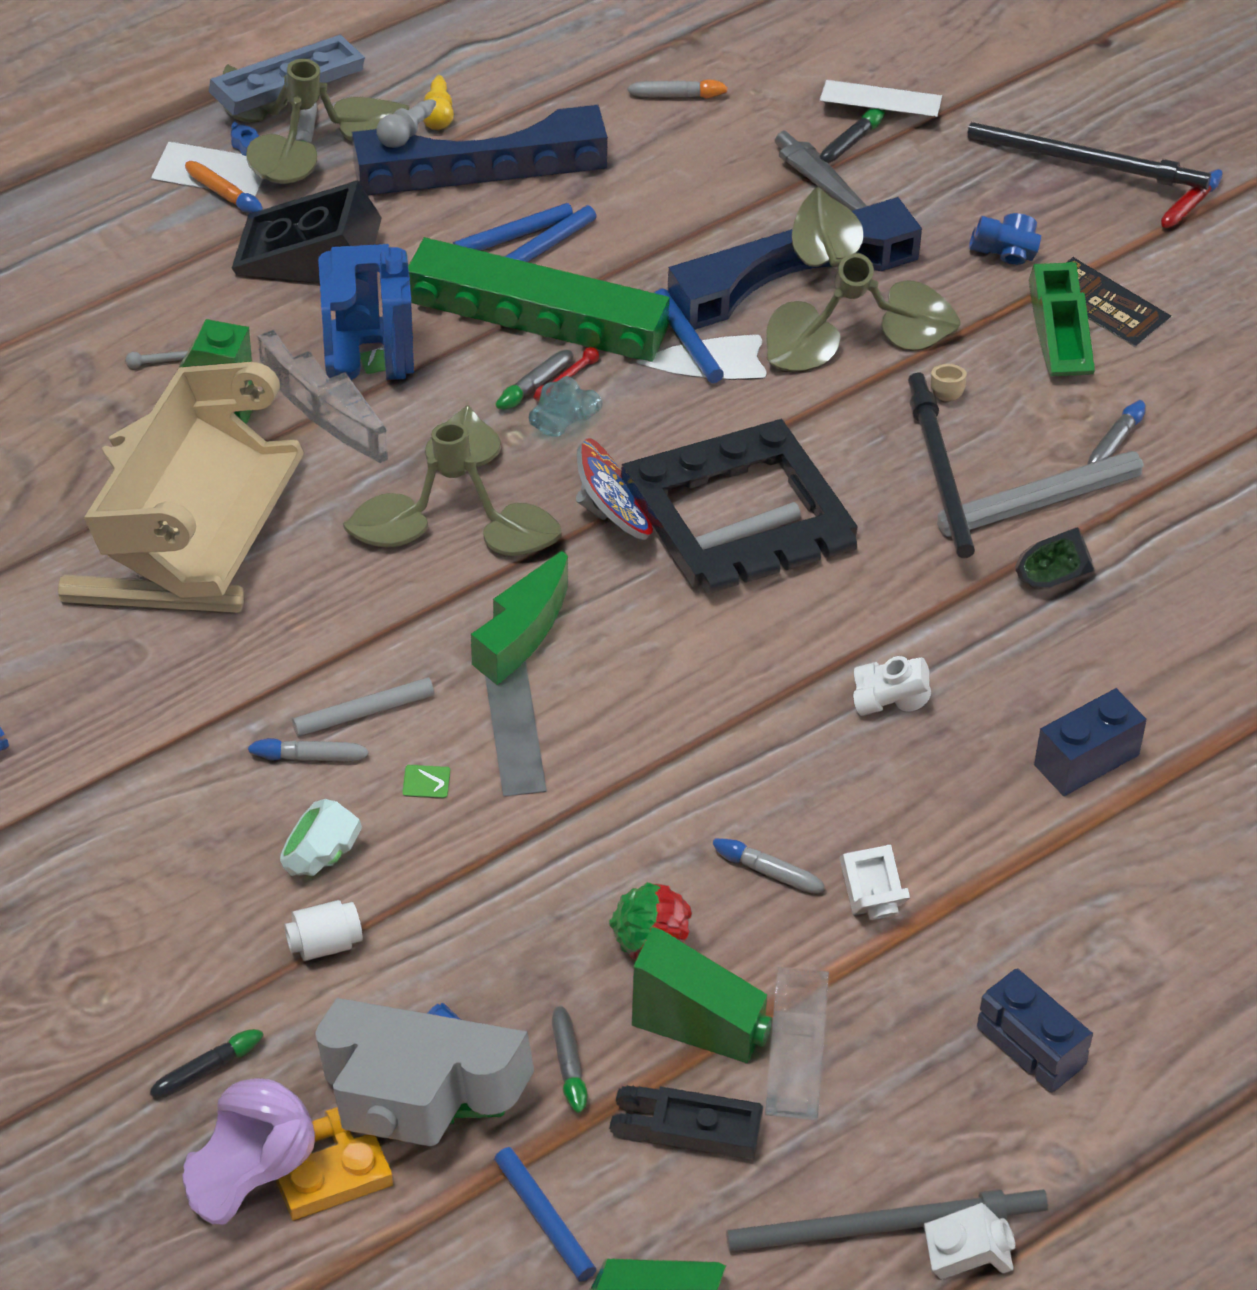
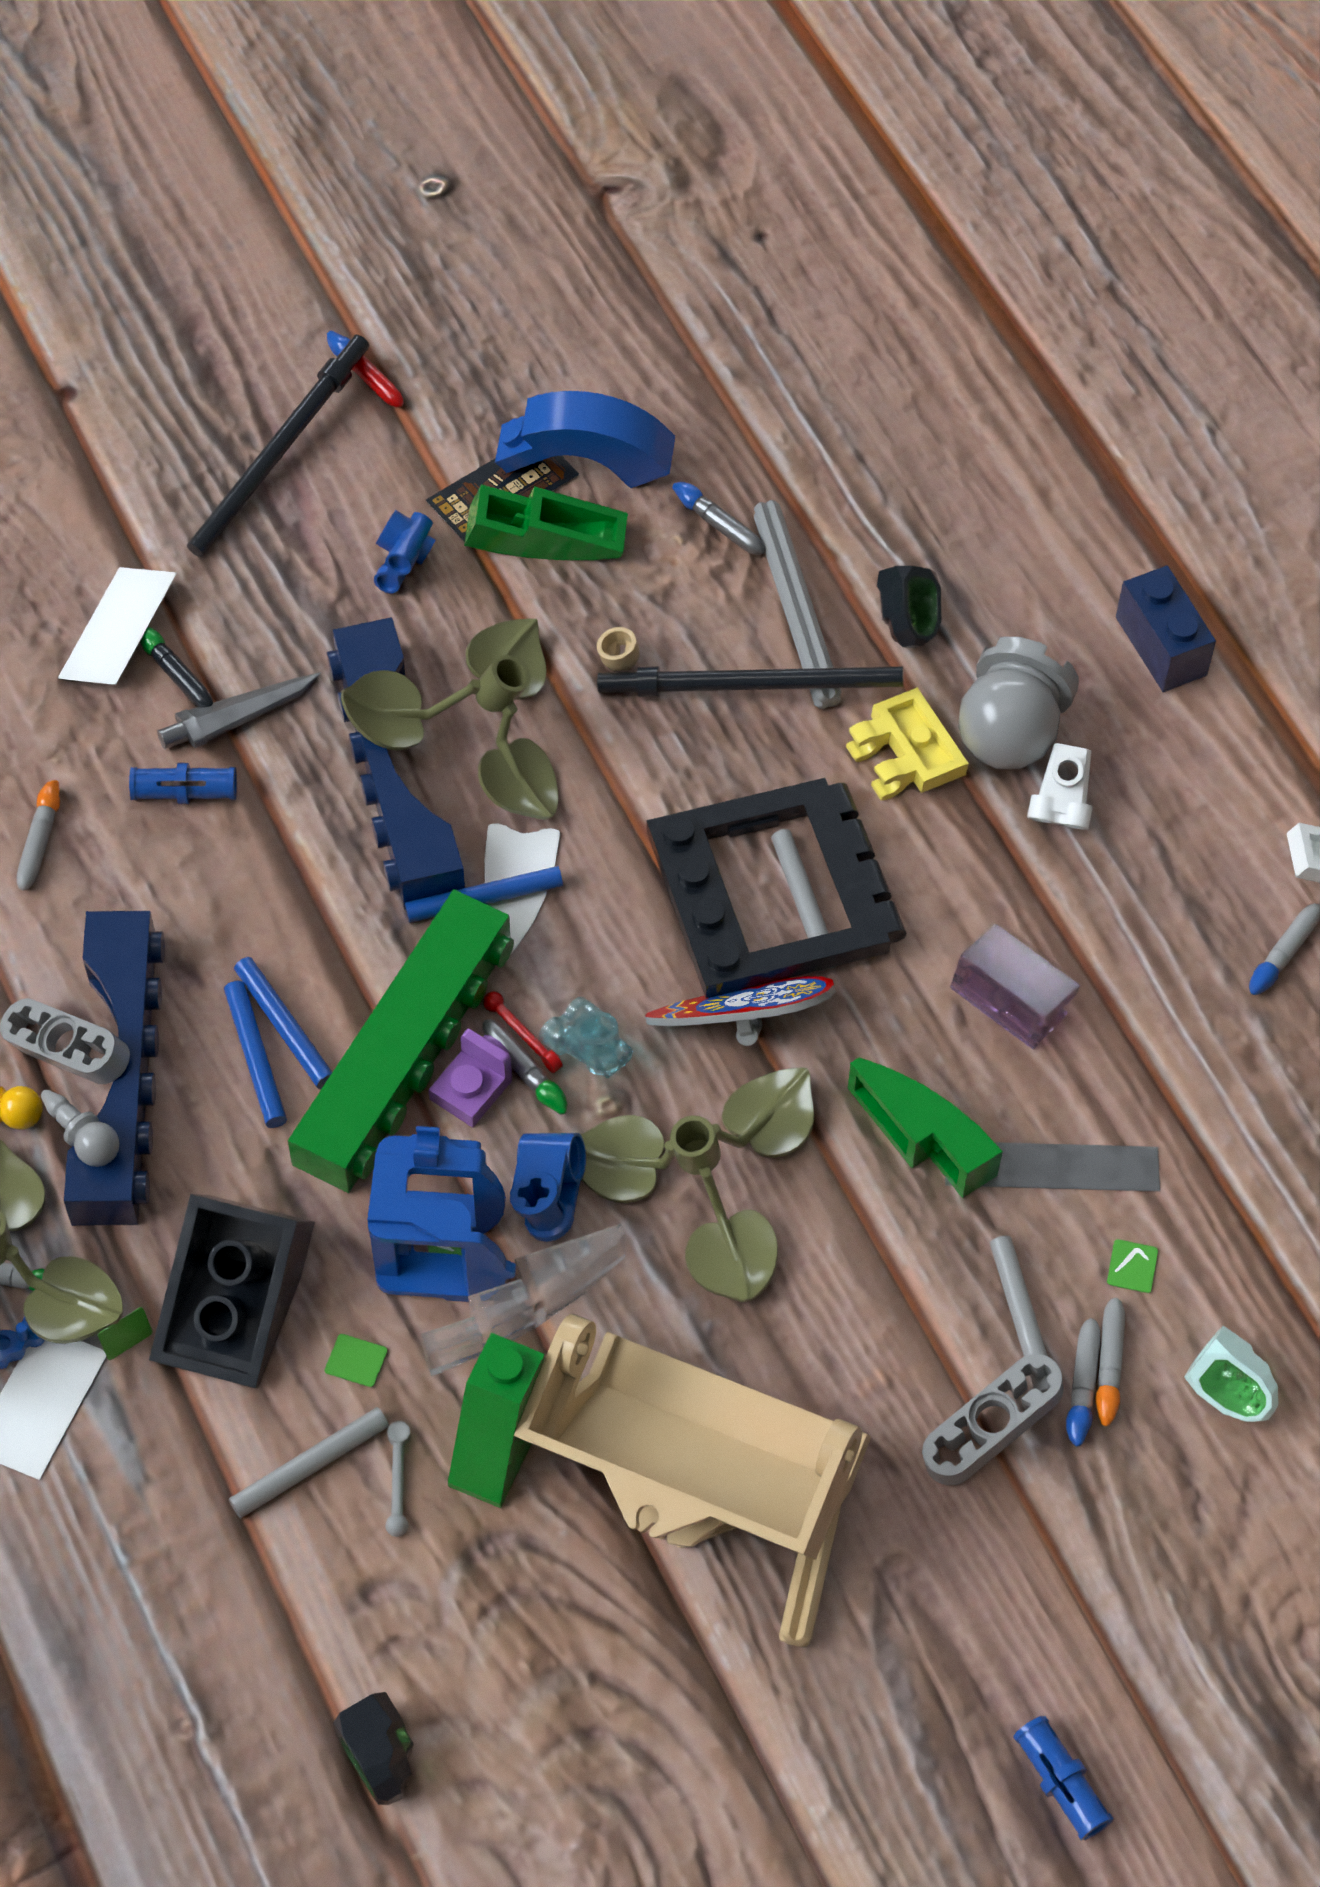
camera: 80 degrees left, 10 degrees up
(167, 298) = (308, 1462): none -> light grey bar
(245, 201) = (95, 1383): orange piece -> none
(263, 190) = (125, 1333): none -> bright green sticker
(266, 702) = (1035, 1405): none -> light grey beam
(267, 320) = (356, 1360): none -> bright green sticker
(296, 766) = (1110, 1363): none -> light grey piece
(421, 393) = (548, 1182): none -> blue piece
(488, 116) = (75, 1055): none -> light grey beam
(513, 349) = (473, 1078): none -> medium lavender bracket
(674, 665) = (1013, 985): none -> clear purple hinge
(743, 154) = (147, 783): none -> blue pin
(912, 585) = (917, 738): none -> light yellow plate
(954, 628) = (1015, 703): none -> light grey tile
(1157, 328) = (588, 427): none -> blue arch

